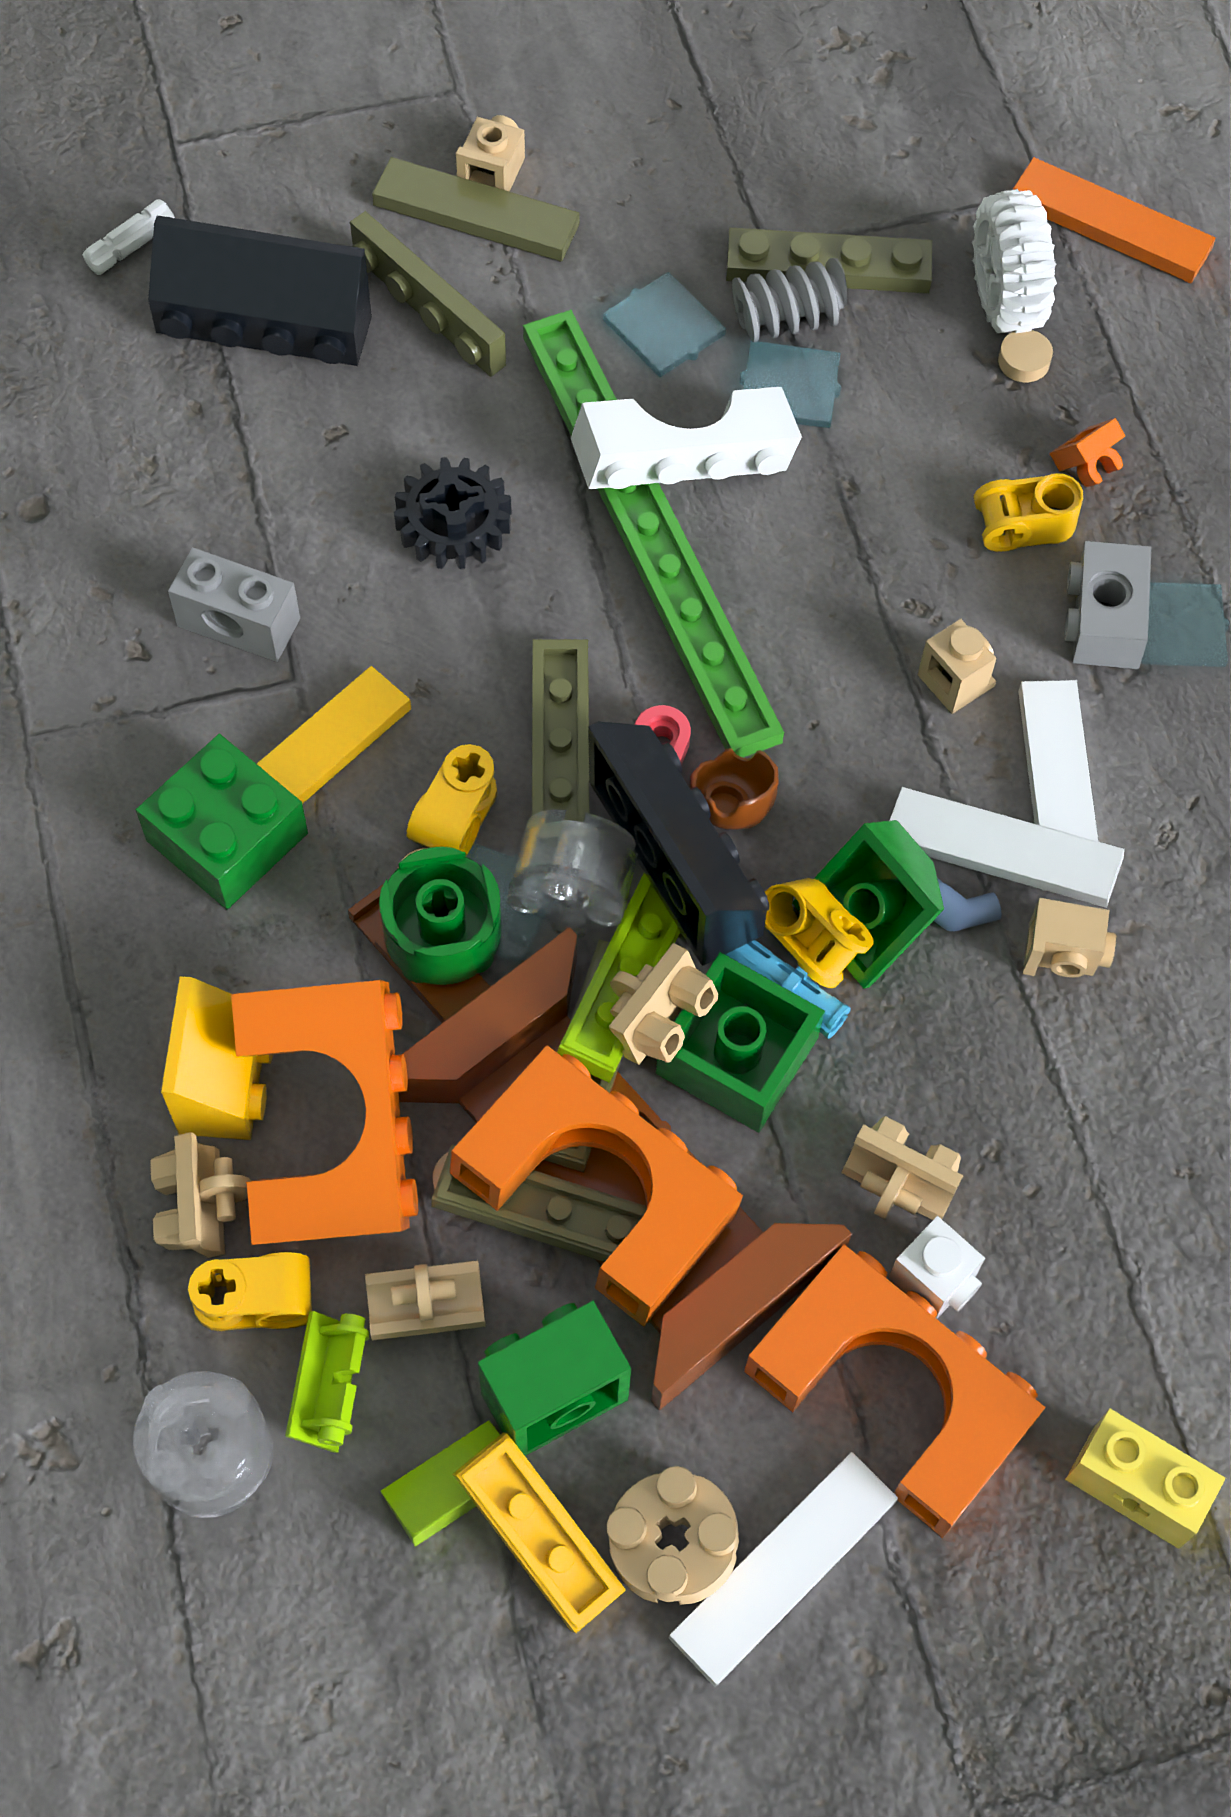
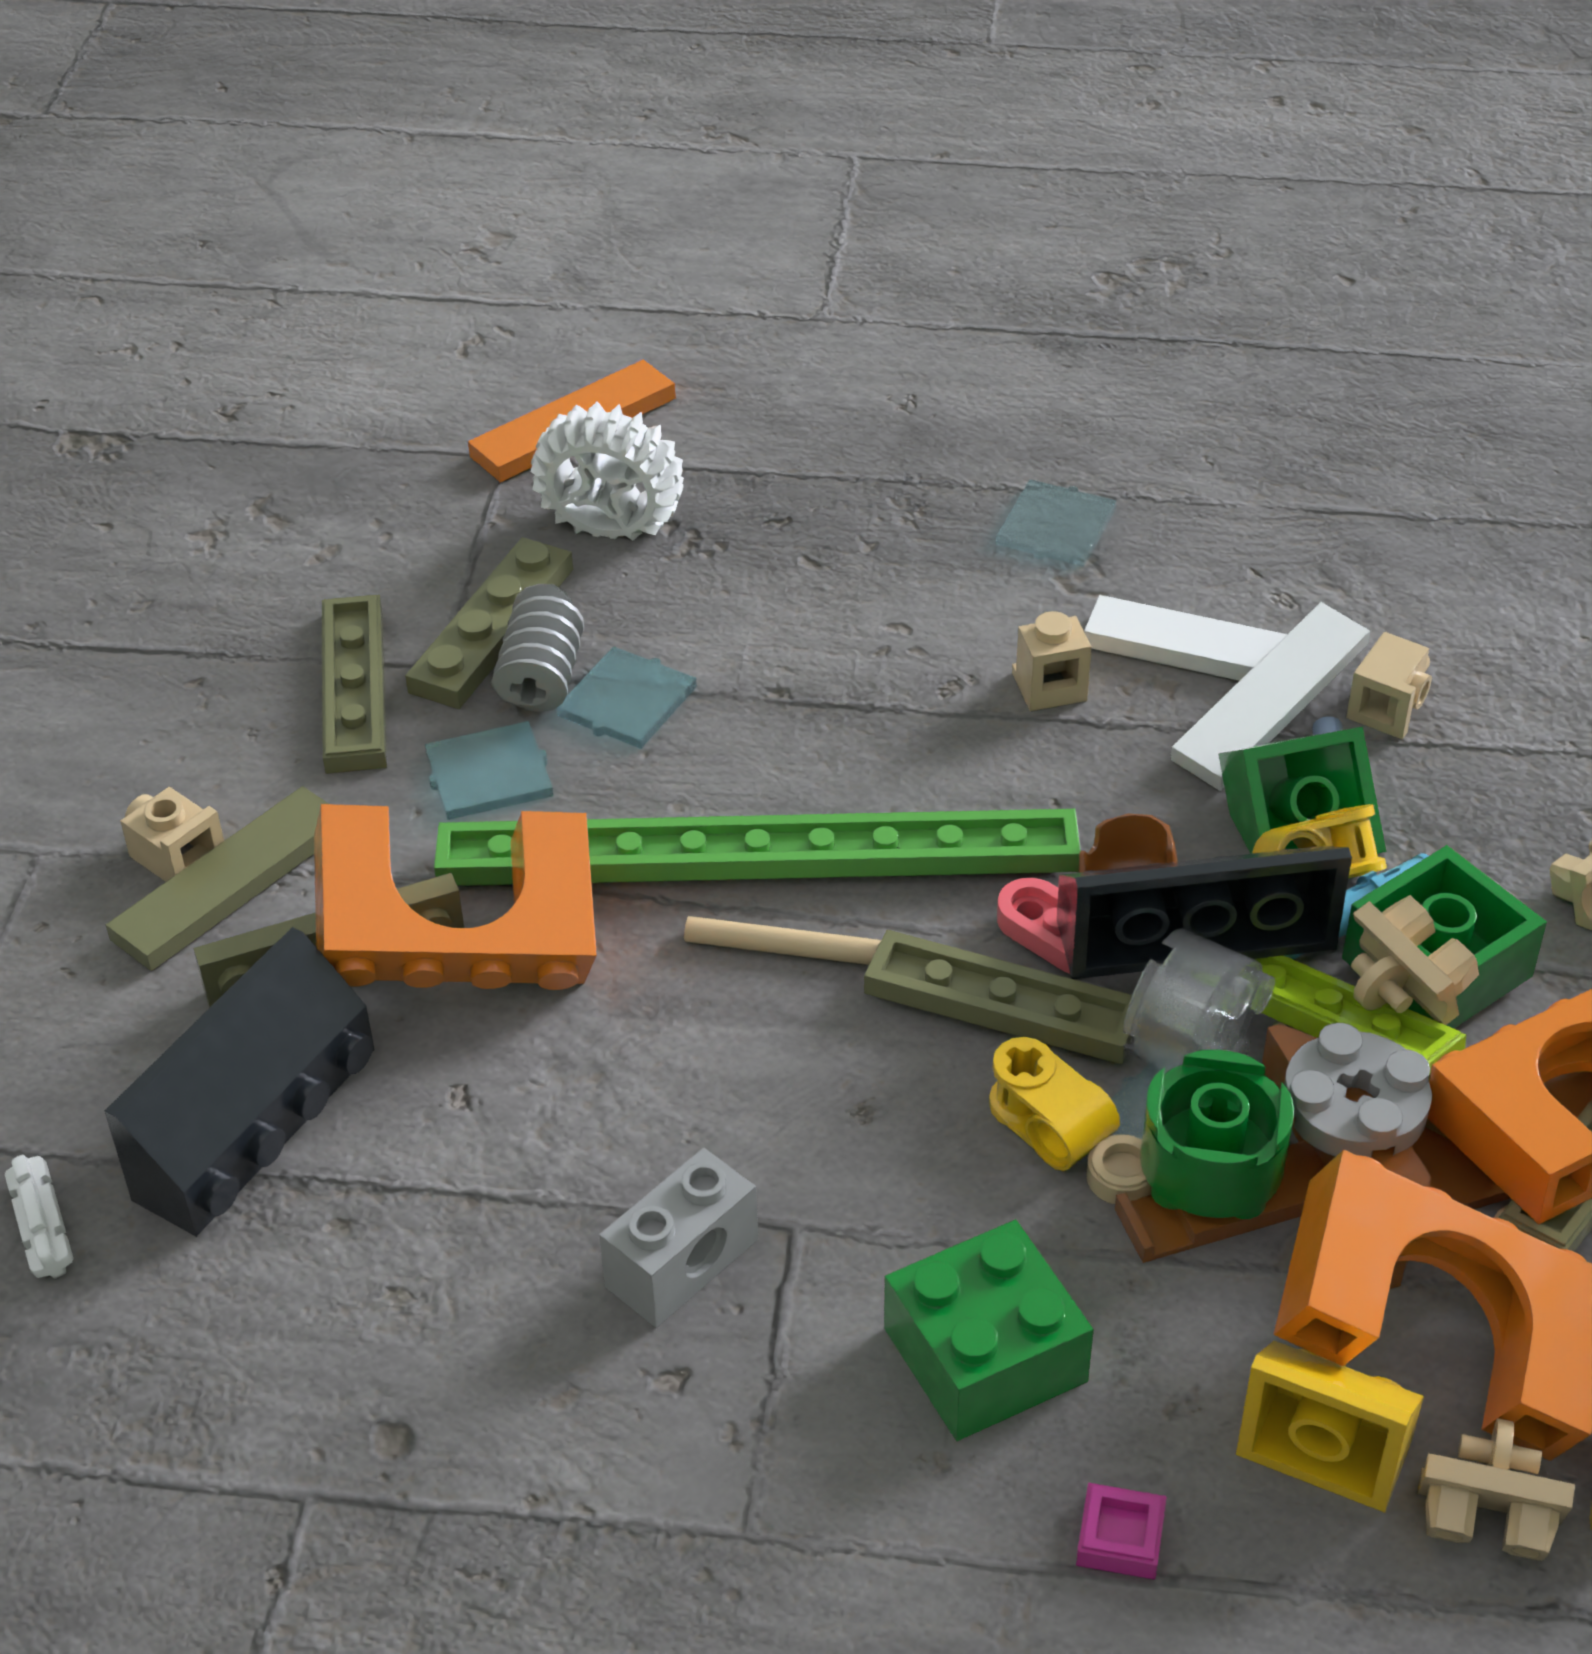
camera: 65 degrees left, 20 degrees down
(98, 962) = (1121, 1531): none -> dark pink tile
(336, 734) = (890, 1191): yellow tile -> none
(410, 298) = (377, 937): none -> orange arch
(452, 513) = (653, 1002): black gear -> none
(505, 969) = (1366, 1061): none -> light grey plate
(563, 574) = (780, 940): none -> tan bar
(627, 446) = (677, 805): white arch -> none
(715, 200) = (353, 684): none -> olive tile
(1025, 356) = (698, 522): tan tile -> none
(1027, 511) = (891, 563): yellow piece -> none
(1087, 448) = (840, 506): orange tile -> none
(1113, 576) = (1029, 543): light grey brick -> none

